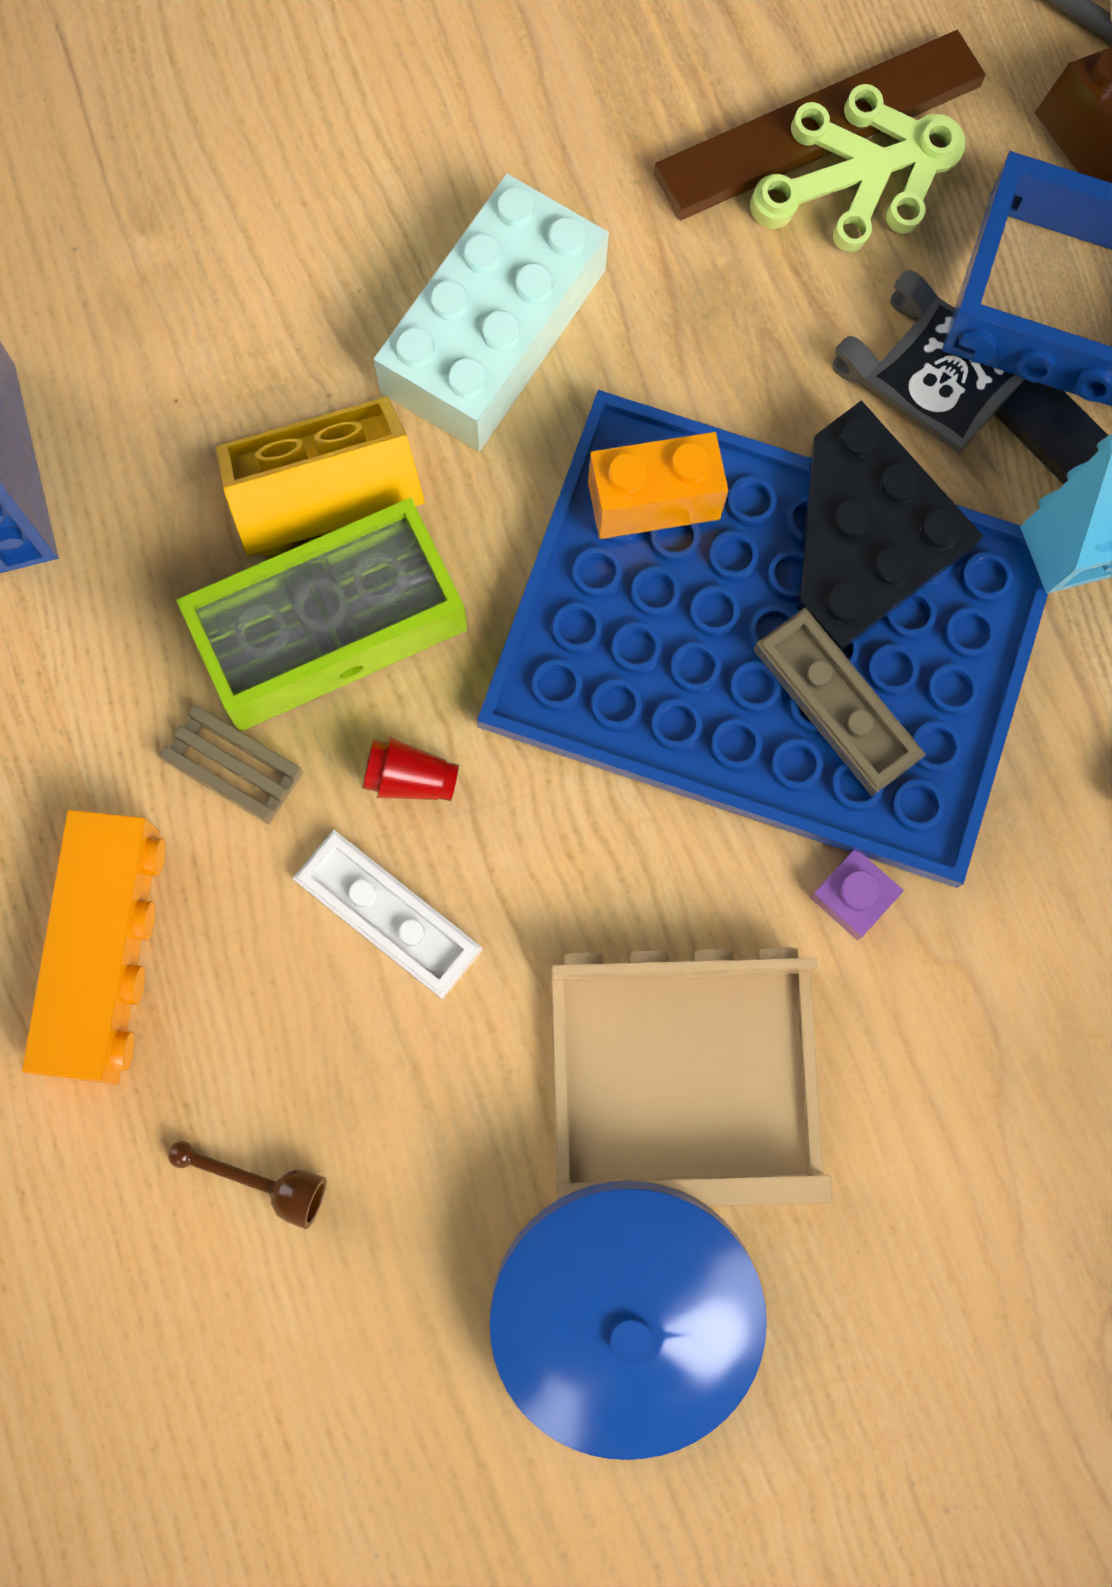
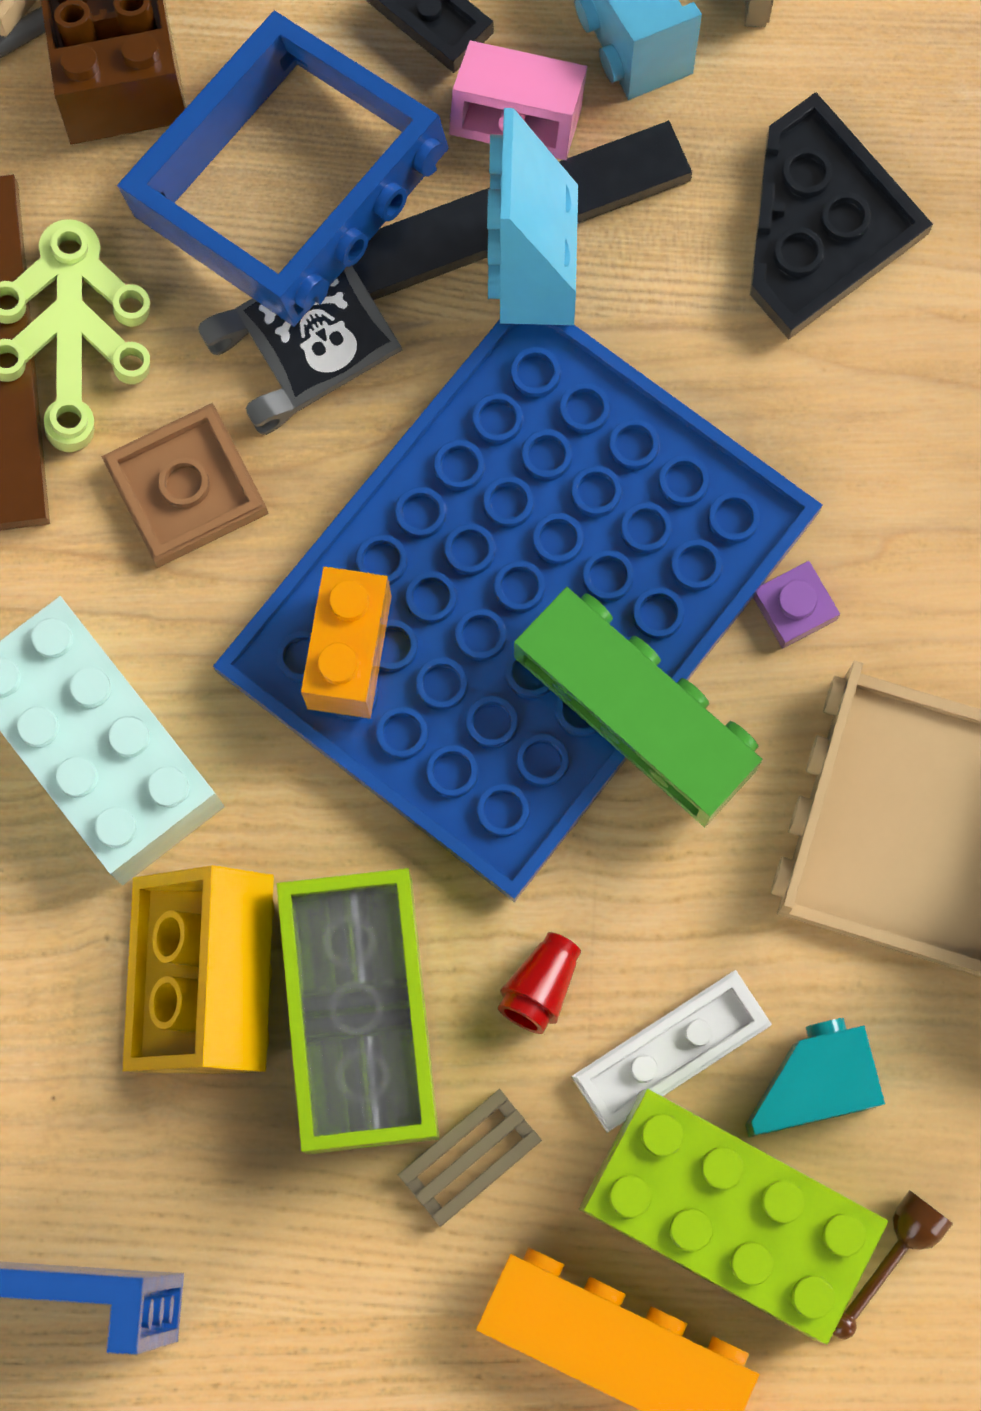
camera: 65 degrees left, 0 degrees up
(243, 1013) = (734, 1215): none -> lime brick
(399, 1056) = (819, 1080): none -> teal slope
(693, 765) = (637, 705): none -> bright green brick
(758, 316) = (185, 485): none -> medium nougat tile
(838, 701) = (615, 551): dark tan tile -> none
(872, 527) = (454, 459): black plate -> none

